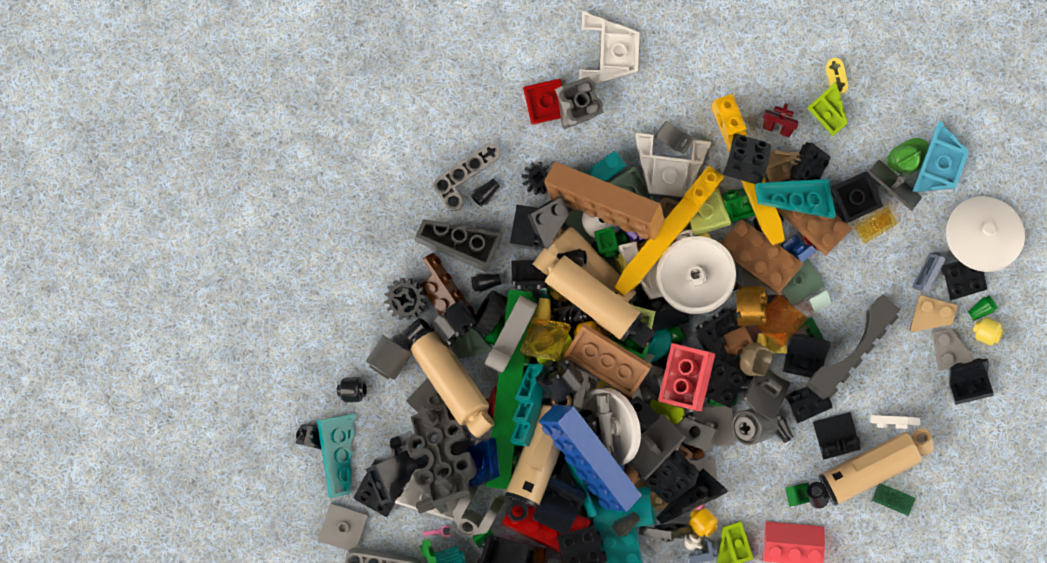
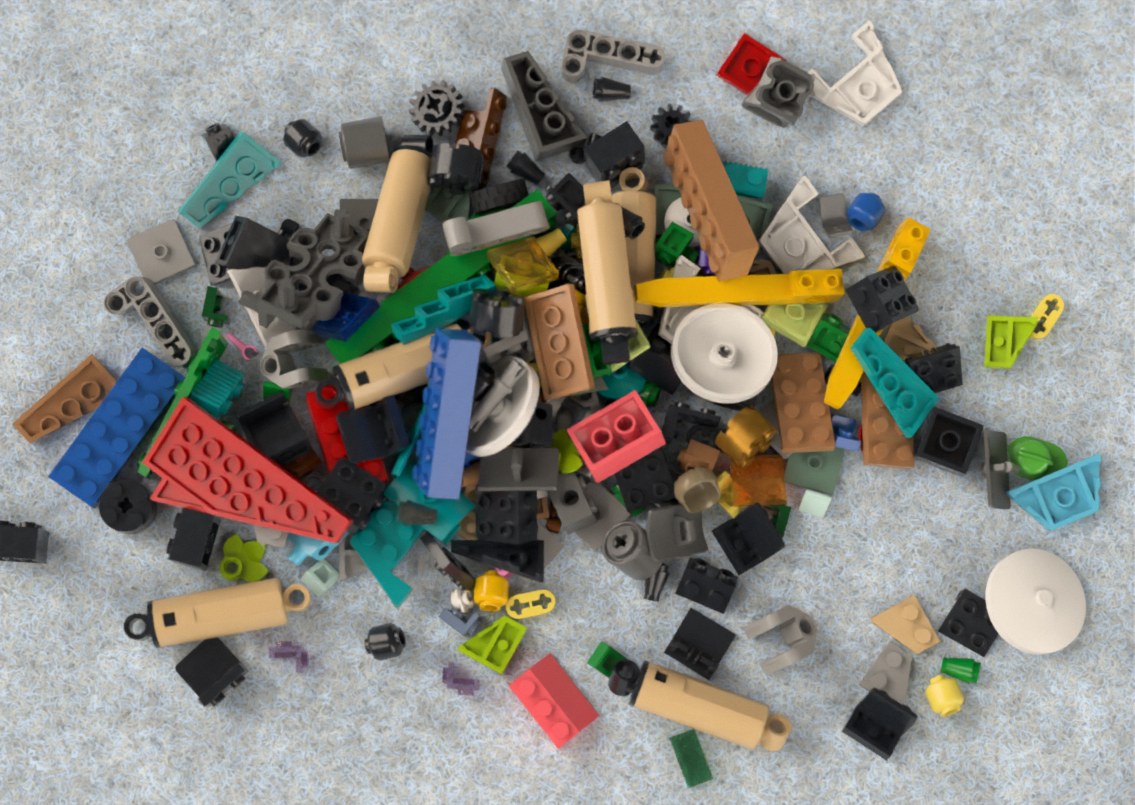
camera: 40 degrees right, 5 degrees down
(400, 525) = (212, 304): none -> dark green bracket
(505, 245) = (577, 155): none -> black arm
(548, 220) = (640, 164): wing -> none
(687, 118) = (865, 211): none -> blue head
(733, 510) = (529, 598): none -> light yellow beam
(788, 123) = (953, 313): dark red hips -> none
(876, 225) = (939, 488): clear yellow slope -> none
(877, 318) = (748, 576): dark grey arch -> none
(879, 377) = (797, 630): none -> light grey piece
(899, 421) = (772, 689): white wing -> none
(928, 272) = (944, 582): sand blue tile -> none

